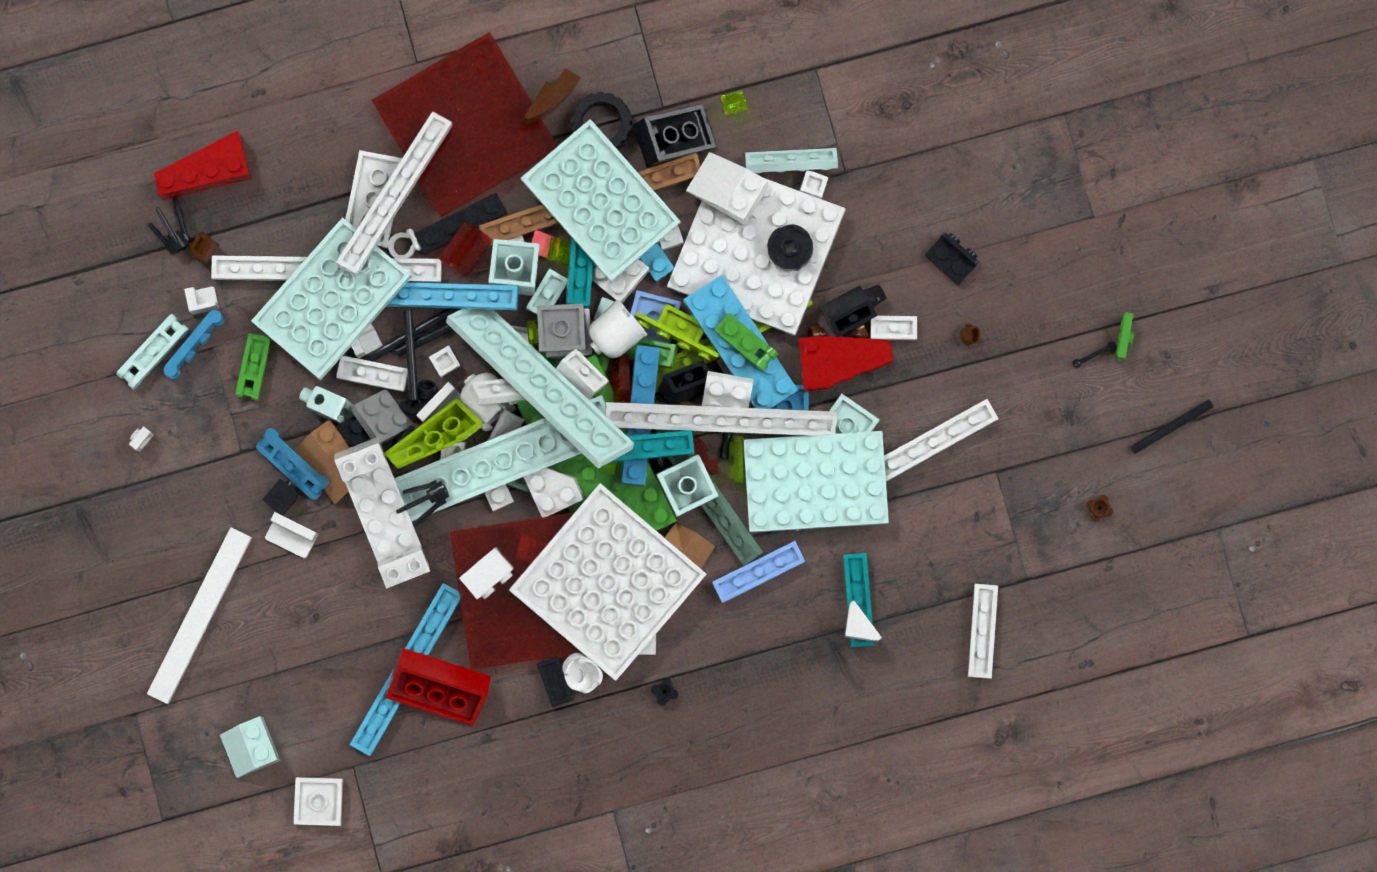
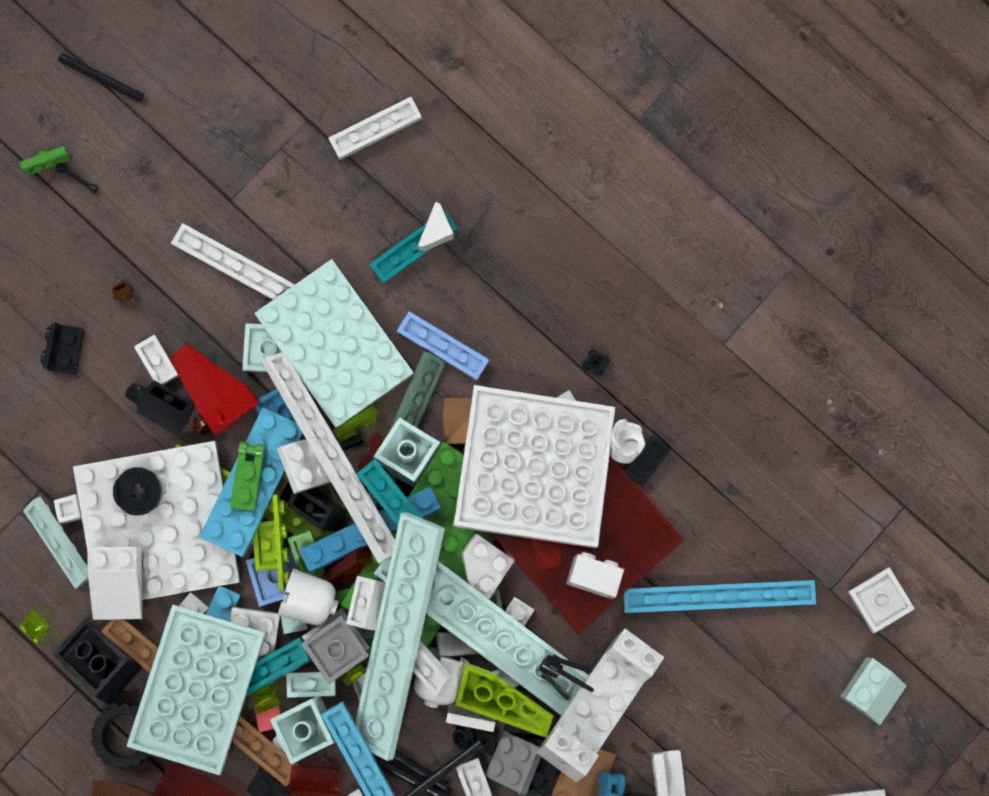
camera: 130 degrees left, 0 degrees up
(438, 686) = (717, 557): red slope -> none
(444, 361) = (428, 738): white plate -> none
(862, 331) = (177, 385): reddish brown hinge -> none
(1097, 514) = (208, 88): reddish brown plate -> none

